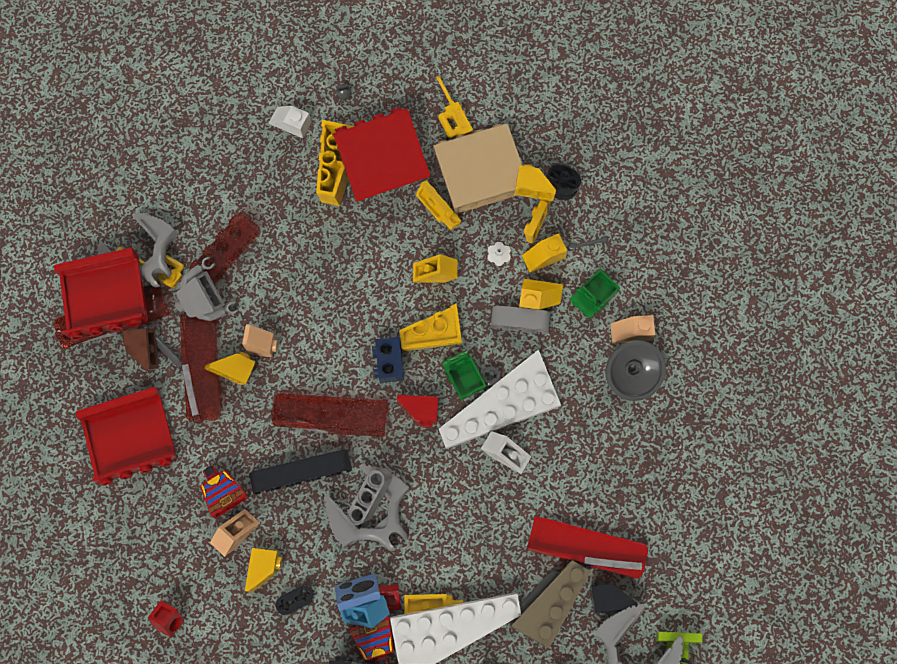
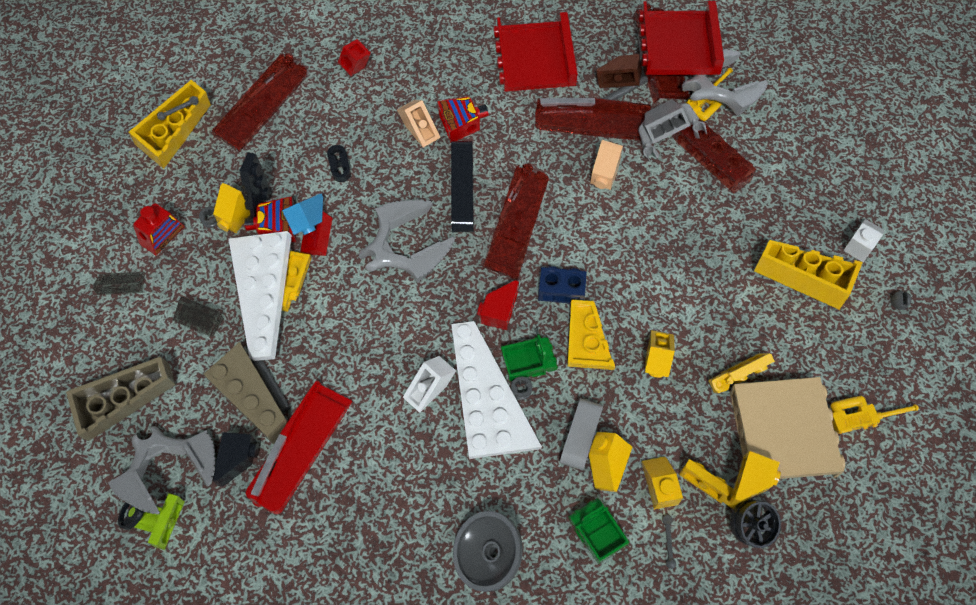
camera: 100 degrees right, 10 degrees down
(234, 367) = (583, 140): yellow slope -> none
(262, 567) = (378, 138): yellow slope -> none
(357, 592) = (324, 210): medium blue tile -> none
(361, 500) = (417, 236): light grey beam -> none
(381, 154) = (812, 313): red panel -> none
(499, 257) = (668, 435): white plant -> none
(633, 328) = (542, 567): light nougat slope -> none

